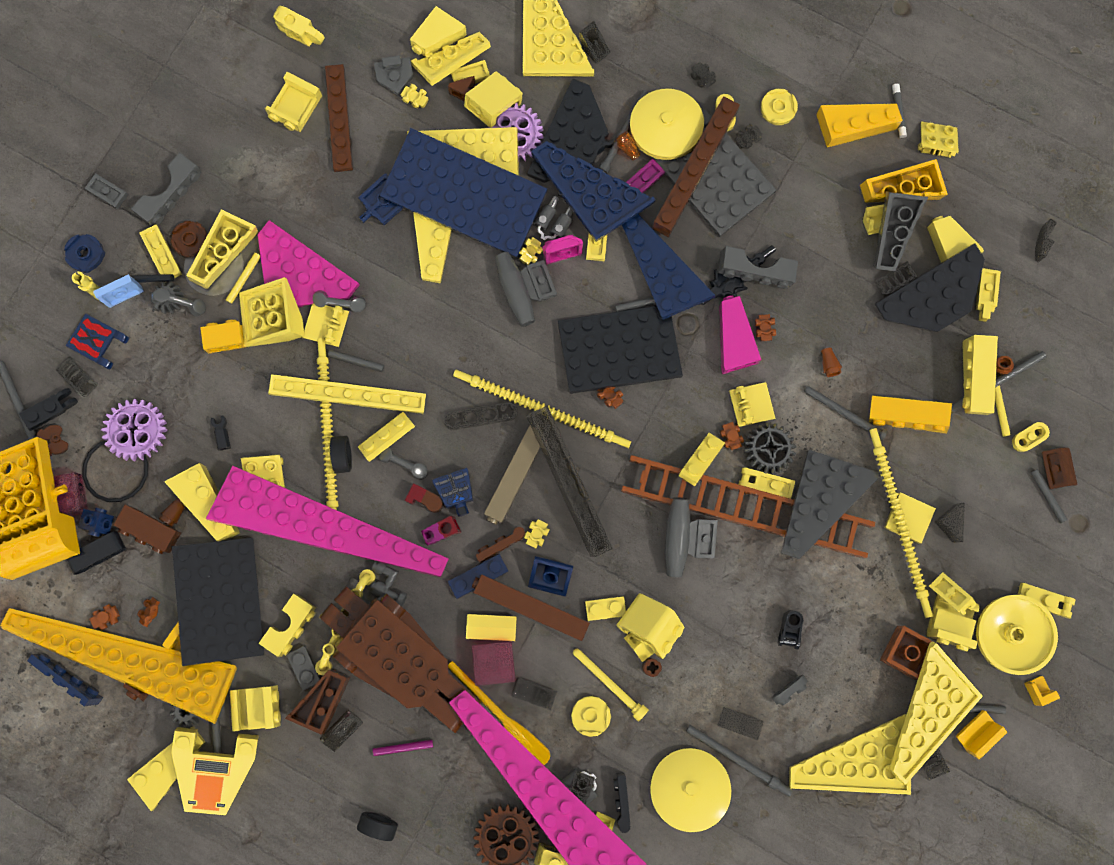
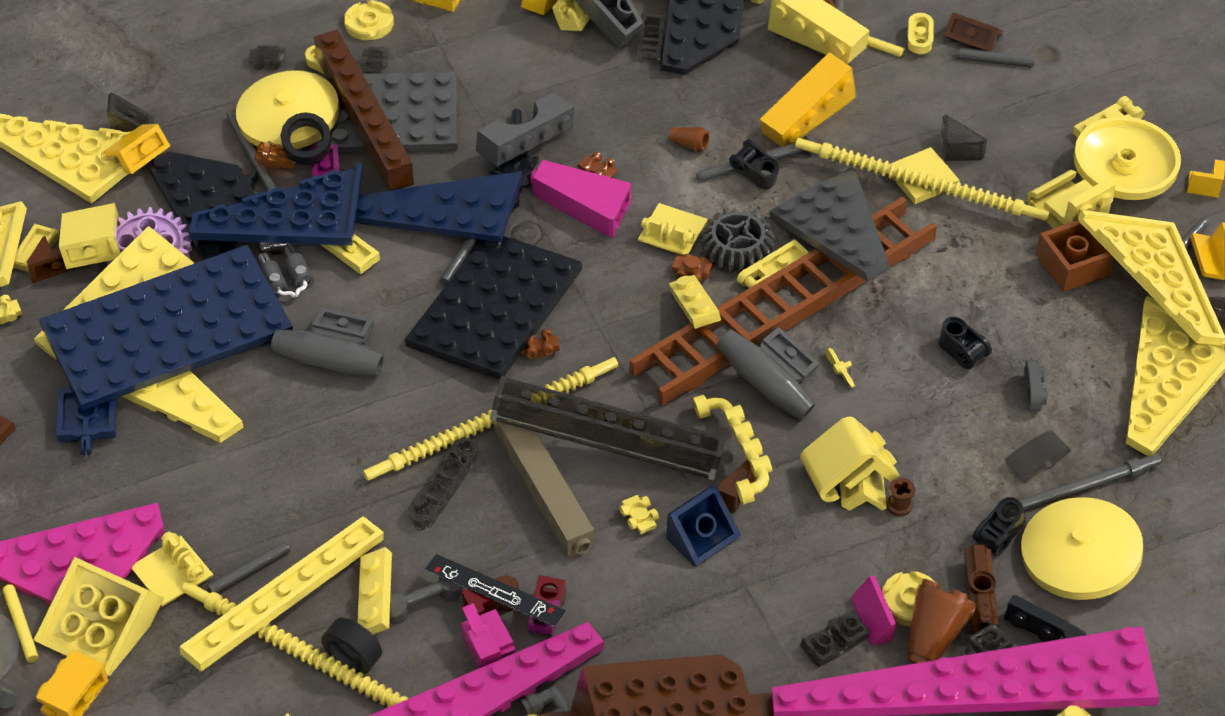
camera: 50 degrees left, 30 degrees down
(321, 299) = (140, 545): dark grey bar -> none
(399, 516) = (485, 636): none -> dark pink piece
(426, 500) = (495, 590): none -> black sticker
(455, 490) = (512, 556): torso -> none
(491, 568) = (637, 608): dark blue plate -> none
(491, 627) = (714, 627): light yellow piece -> none
(493, 663) = (764, 649): clear pink brick -> none
(501, 544) = (619, 554): reddish brown plate -> none
(528, 252) = (299, 314): light yellow piece -> none
(530, 607) = (724, 567): reddish brown brick -> none
(562, 249) = (328, 276): dark pink slope -> none
(564, 703) = (874, 612): none -> dark pink slope
(574, 67) = (139, 147): none -> yellow panel
(577, 745) = (936, 621): none -> dark orange cone
(587, 573) = (728, 488): none -> reddish brown slope
(605, 608) = (790, 504): light yellow plate -> none
(615, 568) = (743, 433): none -> light yellow bar
(631, 743) = (980, 576): none -> reddish brown piece
(633, 155) = (301, 120): none -> black tyre
(637, 709) = (944, 544): light yellow piece -> none
(668, 736) = (996, 529): none -> black piece
(722, 570) = (839, 366): none -> light yellow piece
(835, 416) = (752, 161): none -> black piece
(952, 593) = (1037, 176): light yellow hinge -> none

